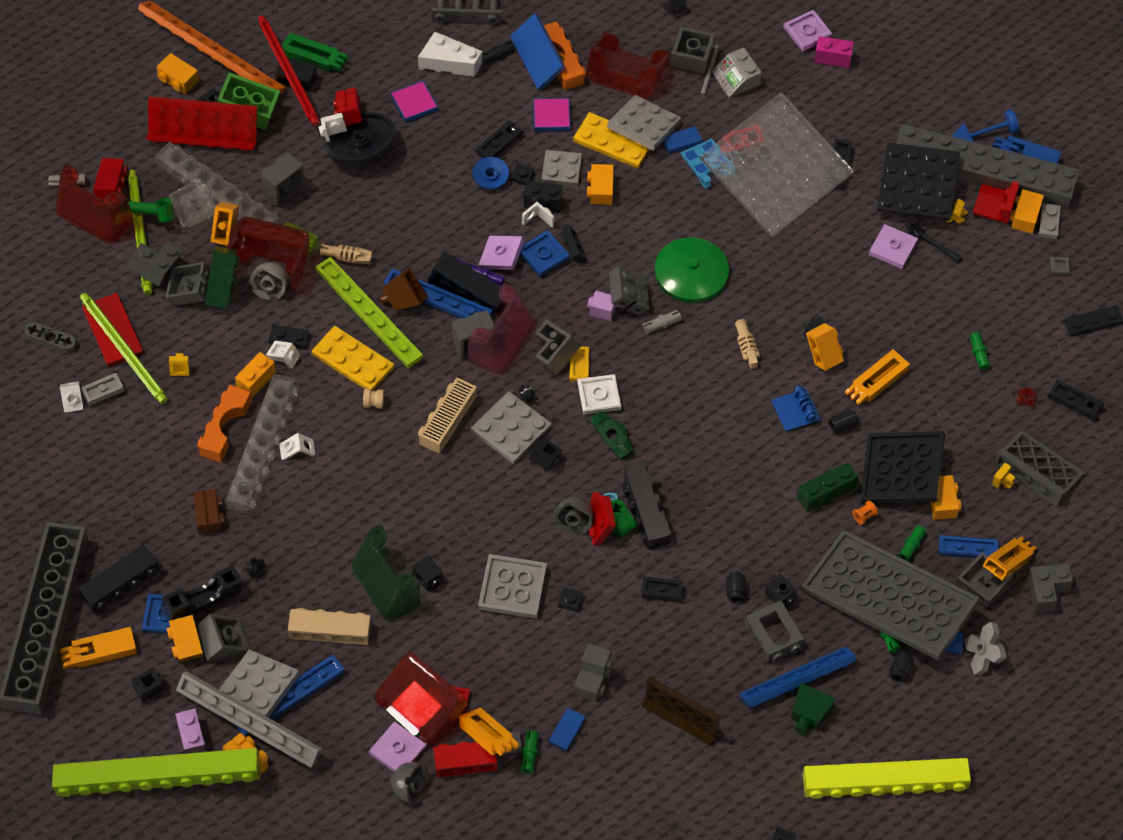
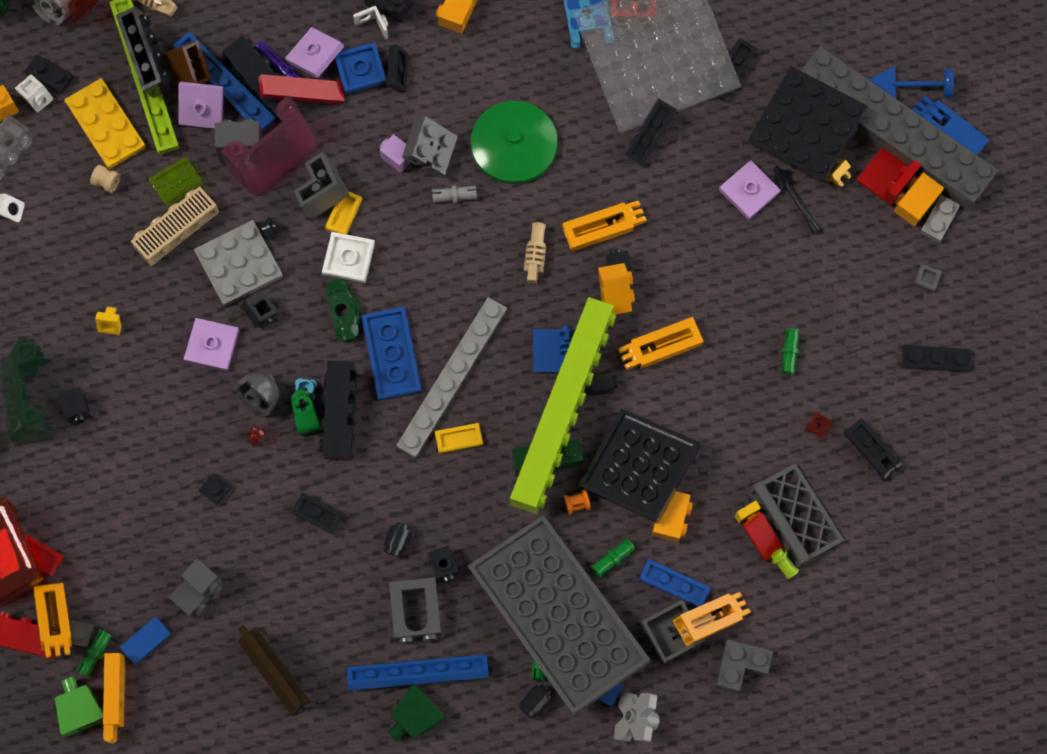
camera: 20 degrees right, 15 degrees up
(367, 291) = (144, 52): none -> black brick
(426, 503) = (108, 321): none -> yellow tile
(428, 318) = (200, 104): none -> lavender plate
(432, 382) = (175, 181): none -> clear neon green plate
(512, 586) = (158, 452): light grey plate -> none
(517, 278) = (301, 89): none -> tile
(517, 494) = (211, 344): none -> lavender plate
(537, 796) = (77, 708): none -> bright green torso
(561, 775) = (113, 695): none -> light orange hinge
(585, 547) = (255, 434): none -> clear red plate
(603, 518) = (280, 416): red plate -> none
(666, 454) = (391, 353): none -> blue tile
(722, 456) = (451, 378): none -> light grey plate
(749, 498) = (458, 438): none -> yellow tile
(783, 313) = (594, 228): none -> light orange hinge
(797, 226) = (650, 131): none -> black plate
(825, 440) = (562, 406): none -> lime brick
(1021, 488) = (762, 536): none -> red tile
(1046, 502) = (784, 563): none -> lime pin

